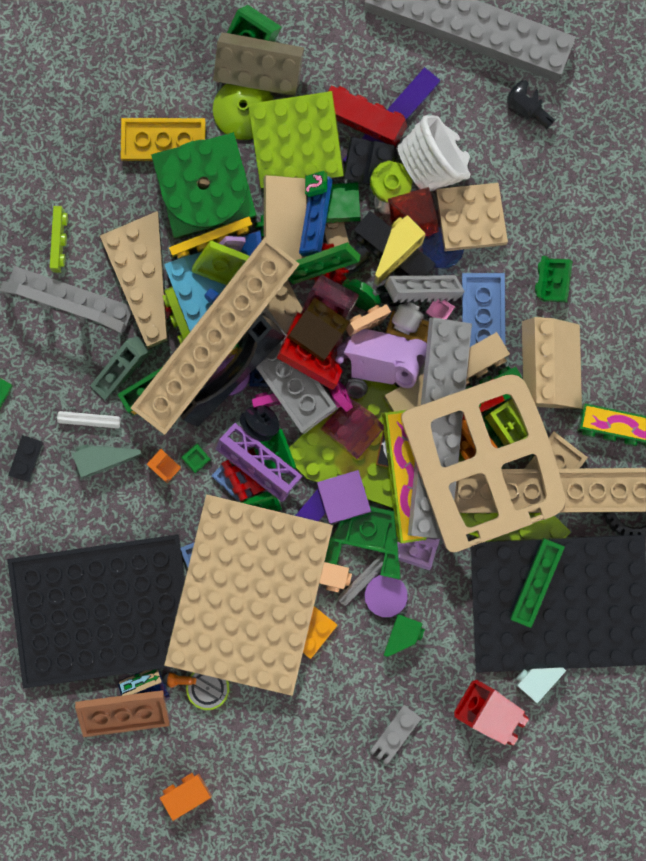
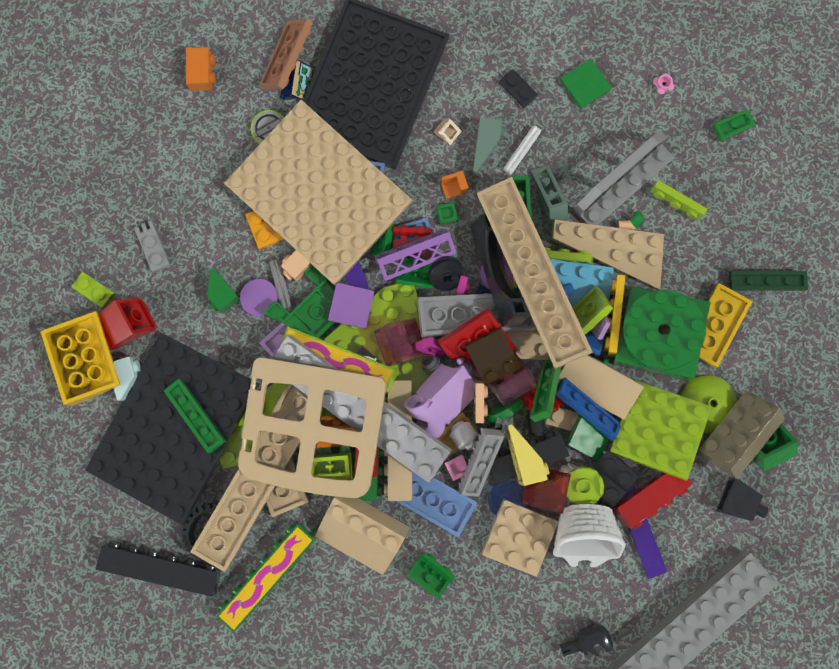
camera: 115 degrees right, 0 degrees up
(91, 113) = (768, 280): none -> dark green plate
(106, 271) = (636, 219): none -> arm
(109, 505) = (447, 131): none -> tan slope
(172, 680) = (289, 105): orange piece -> none
(316, 183) = (615, 424): green tile -> none
(321, 33) = (741, 501): none -> black torso
(472, 767) = (93, 290): none -> lime plate
(546, 730) = (80, 359): none -> yellow slope

